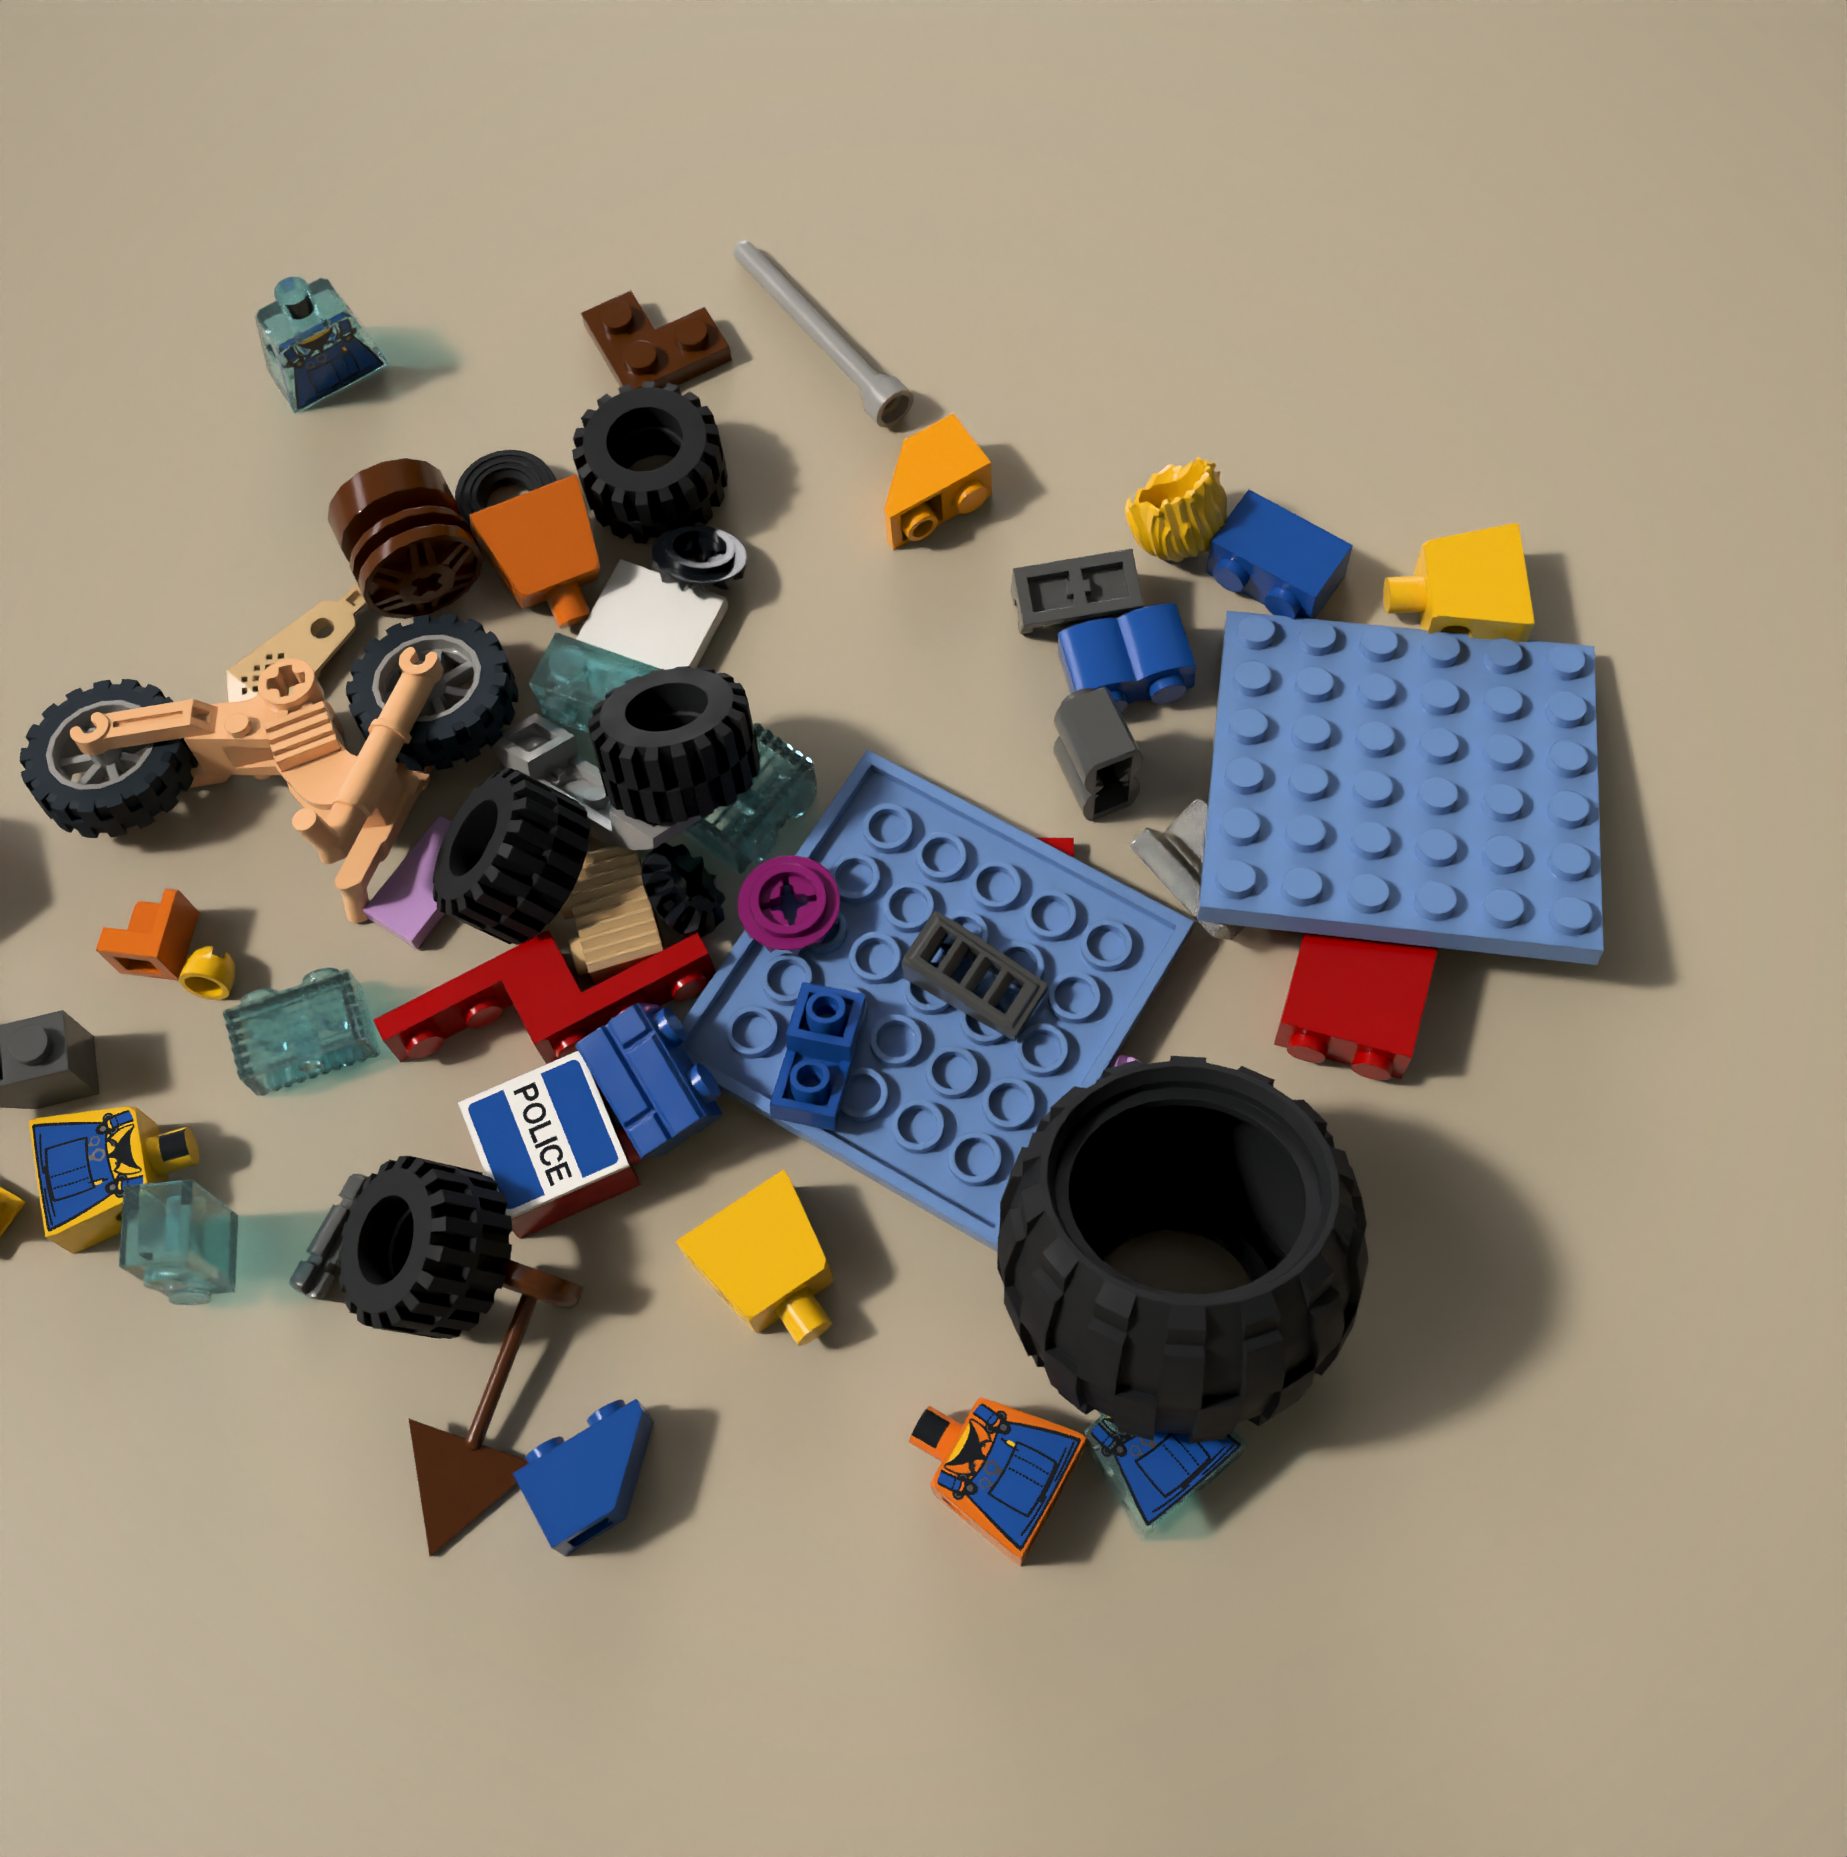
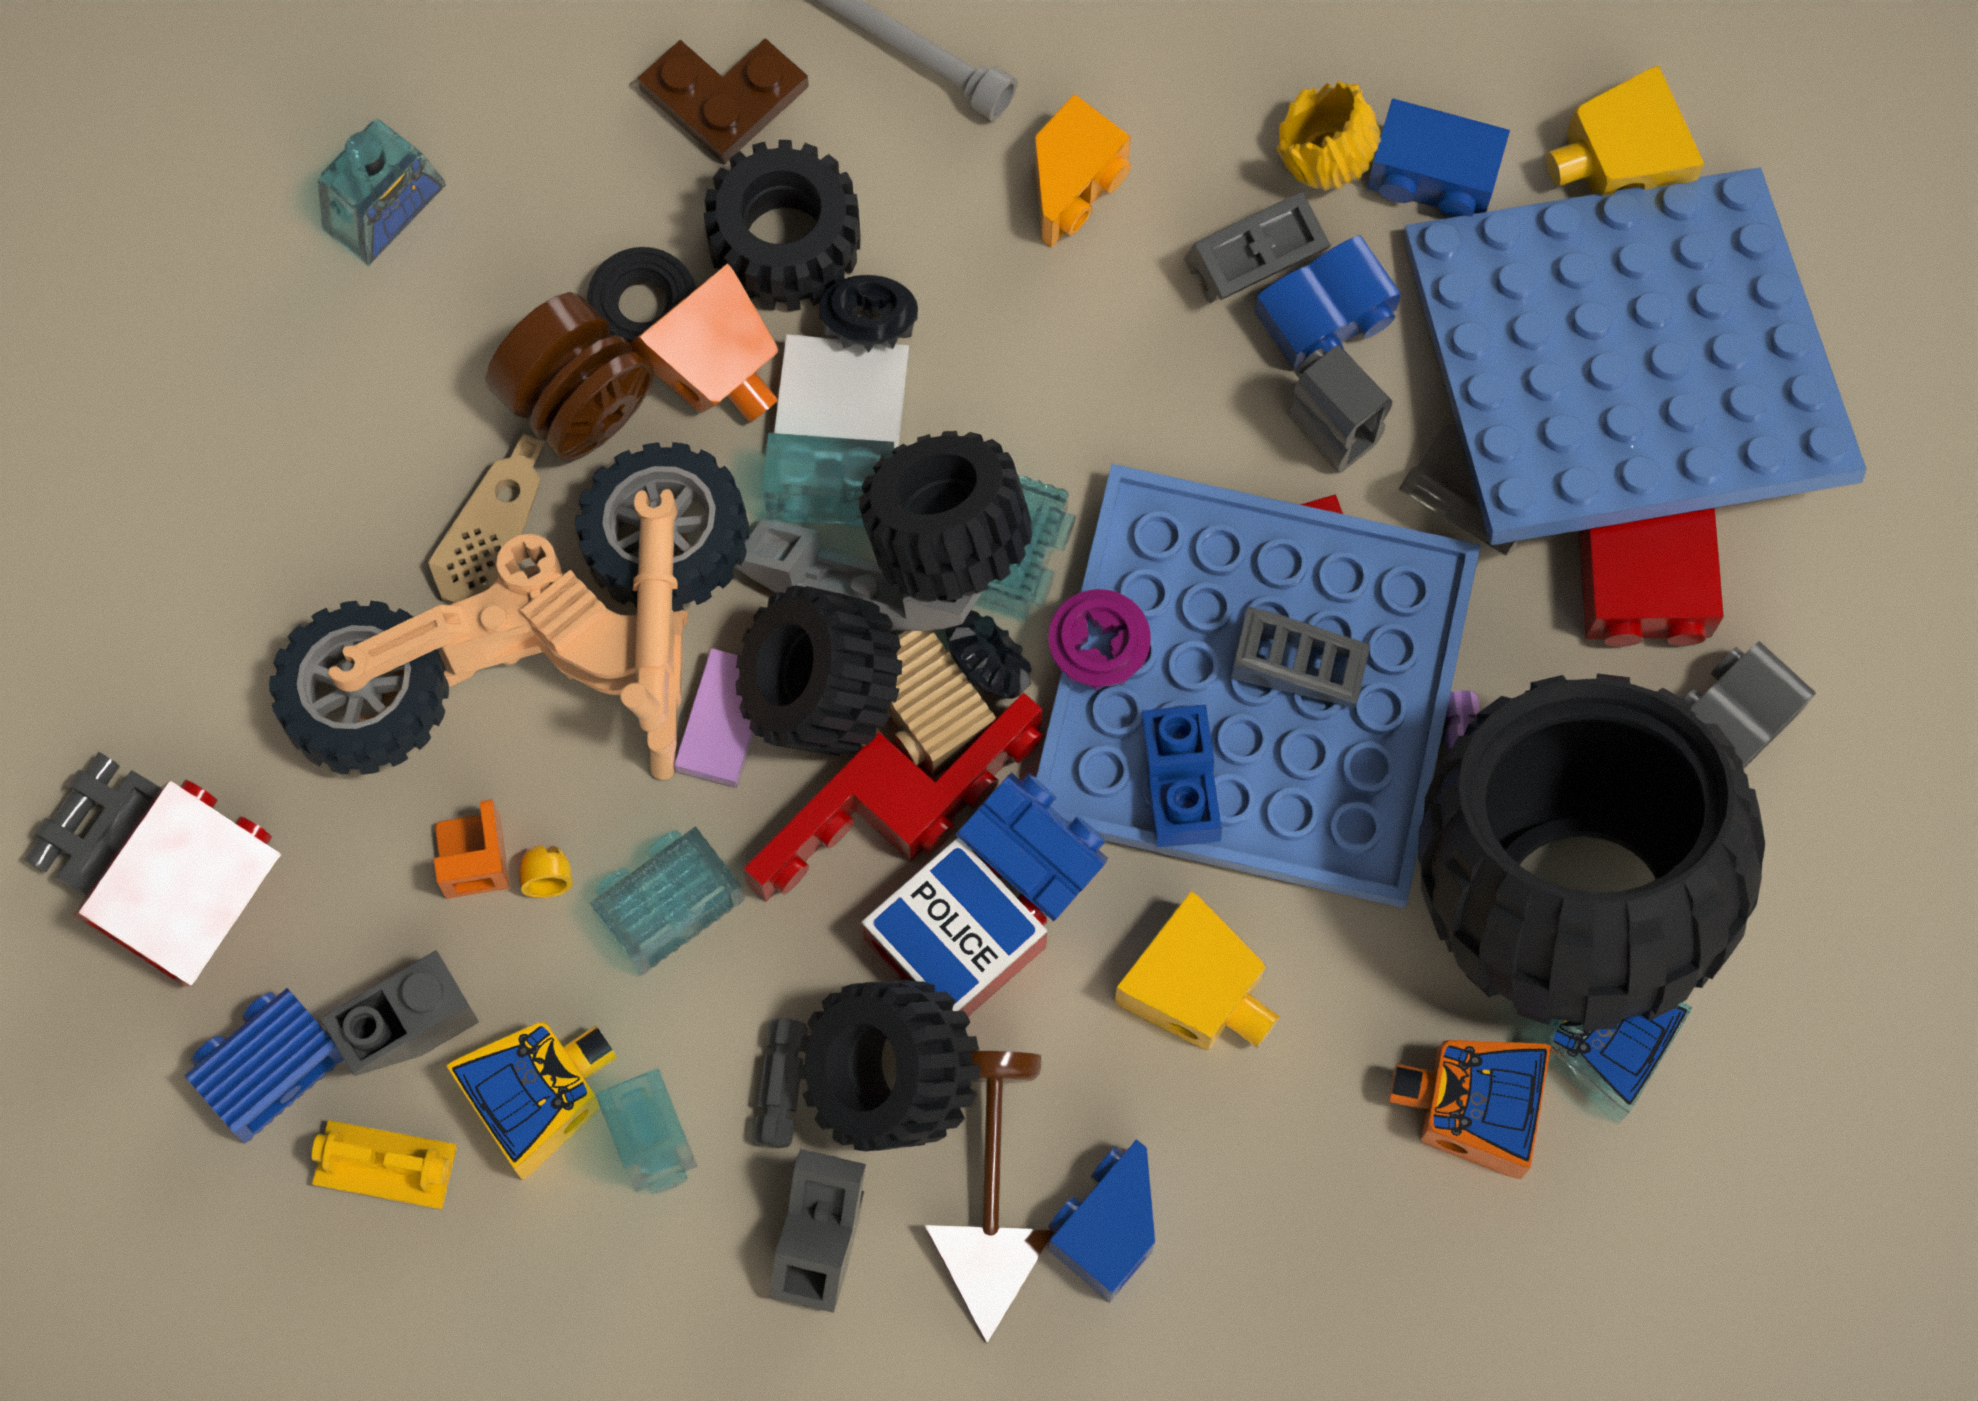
camera: 25 degrees left, 5 degrees up
(305, 1395) = (818, 1230): none -> dark grey brick
(1408, 1156) = (1751, 699): none -> dark grey brick

